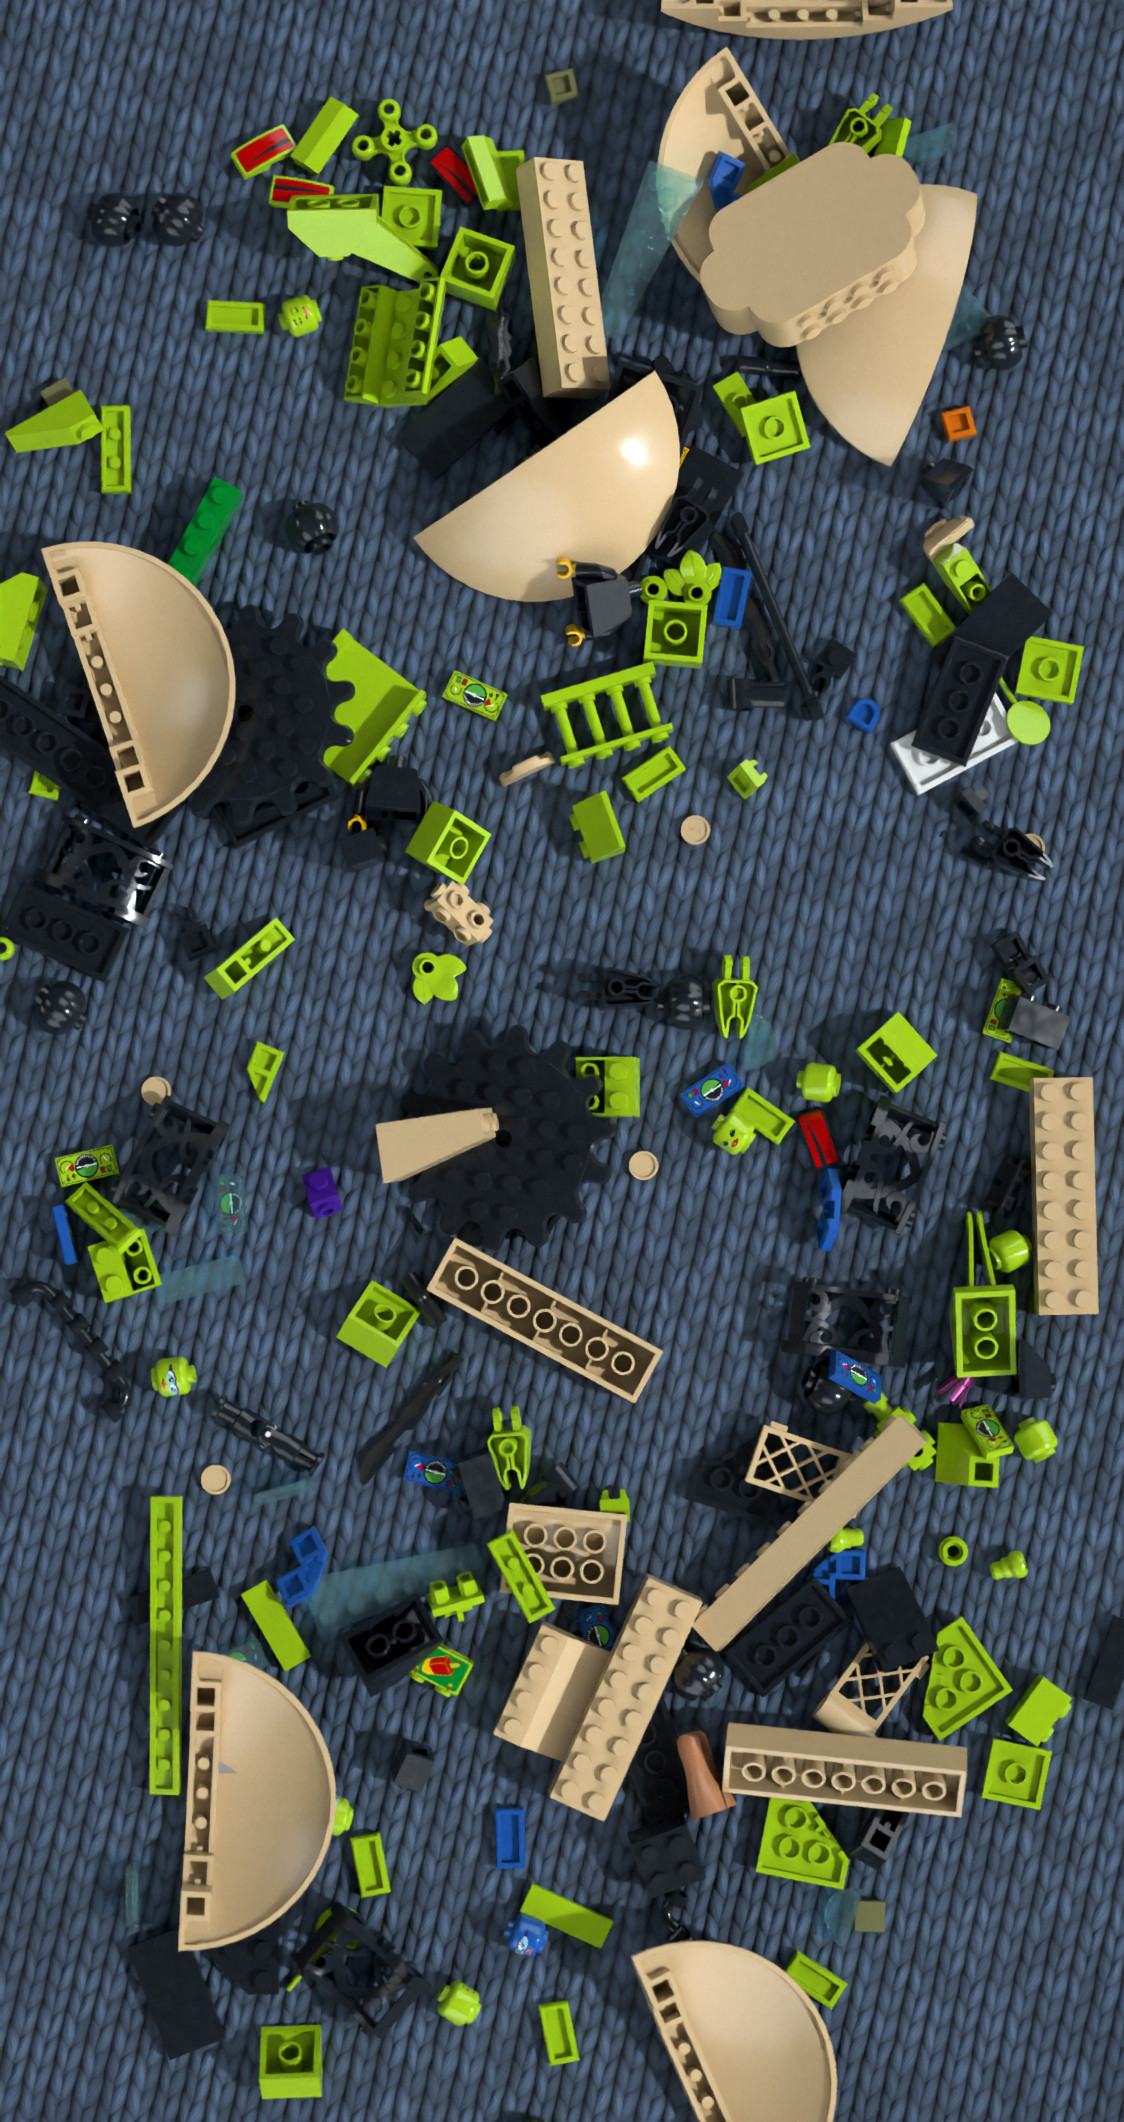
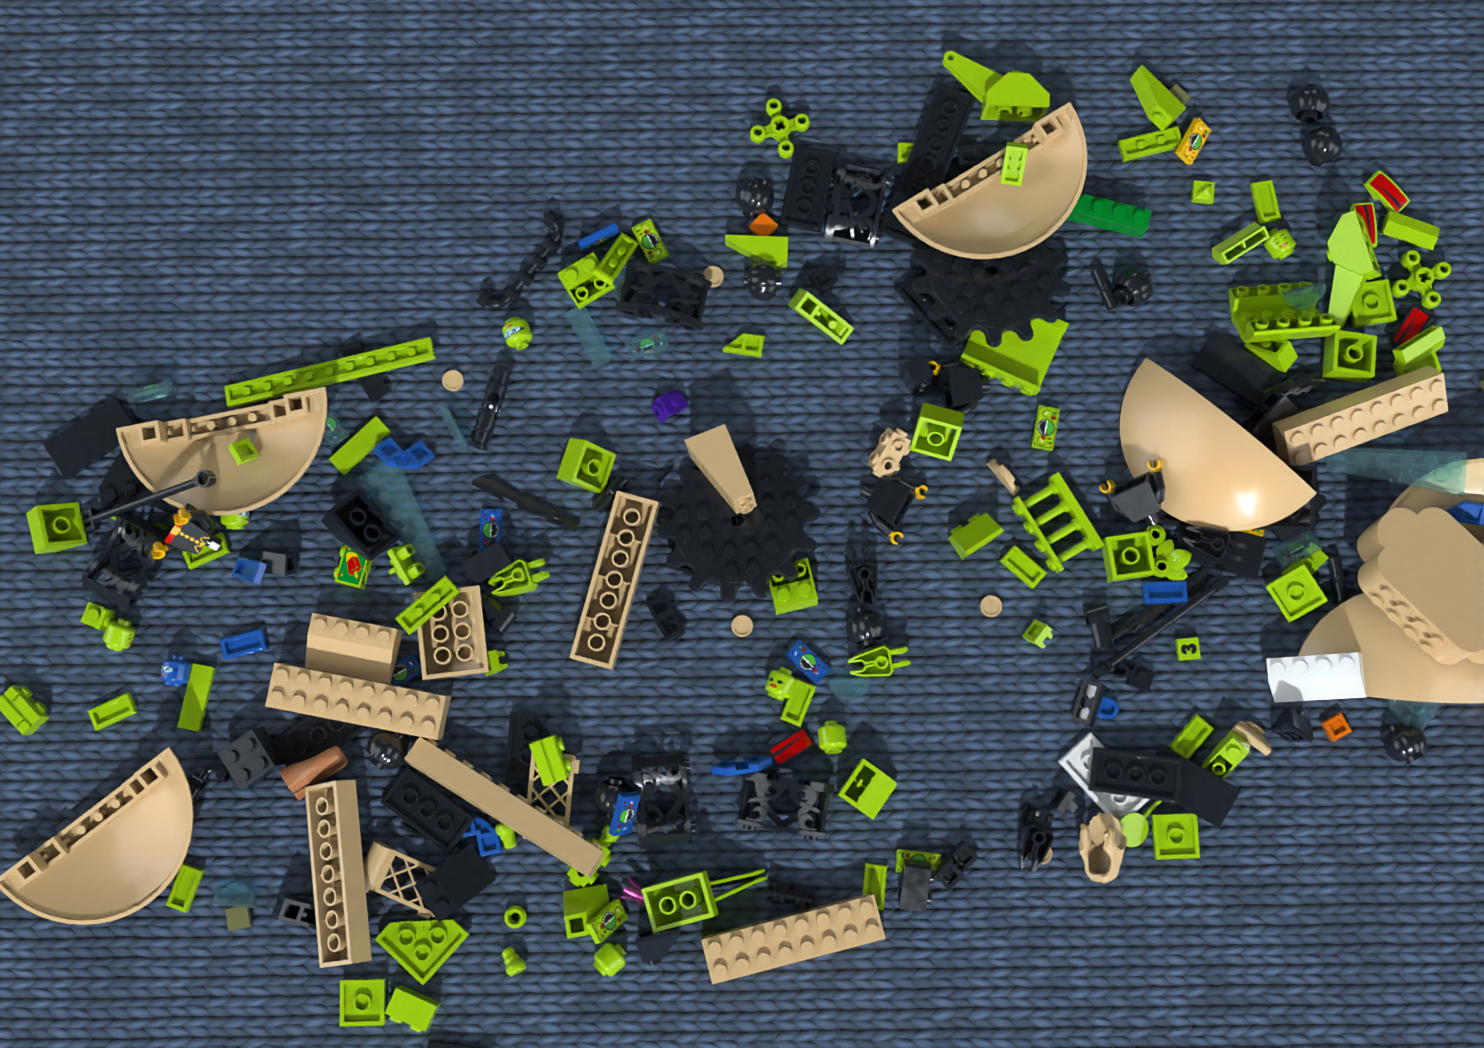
camera: 75 degrees right, 5 degrees down
(103, 1005) = (763, 225): none -> orange tile
(108, 646) = (1014, 163): none -> lime tile
(127, 391) = (1193, 141): none -> yellow tile
(138, 1012) = (761, 248): none -> lime slope
(182, 1025) = (763, 280): none -> black plant
(201, 397) = (1202, 192): none -> lime tile
(250, 1783) = (243, 451): none -> lime tile
(287, 368) = (1239, 243): none -> lime piece
(290, 2008) = (201, 479): none -> black hinge
(308, 565) = (1103, 286): none -> black piece
(344, 1879) = (189, 533): none -> black torso
(382, 304) = (1304, 296): none -> clear light blue tile
(413, 1809) = (249, 570): none -> blue tile
(426, 2028) = (97, 616): none -> lime bracket
(439, 979) = (839, 451): lime plate -> none
(528, 929) = (890, 502): none -> black torso
(608, 1264) = (665, 617): none -> black slope
(717, 410) = (1296, 549): none -> clear light blue tile
(763, 1457) = (550, 759): none -> lime brick
(800, 1845) = (278, 855): lime plate -> none
(813, 587) = (1187, 649): none -> lime tile
(852, 736) = (1088, 702): none -> black piece
(890, 434) = (1317, 677): none -> white slope
(1009, 1251) = (743, 906): lime head -> none
(1041, 768) = (1102, 847): none -> tan hair

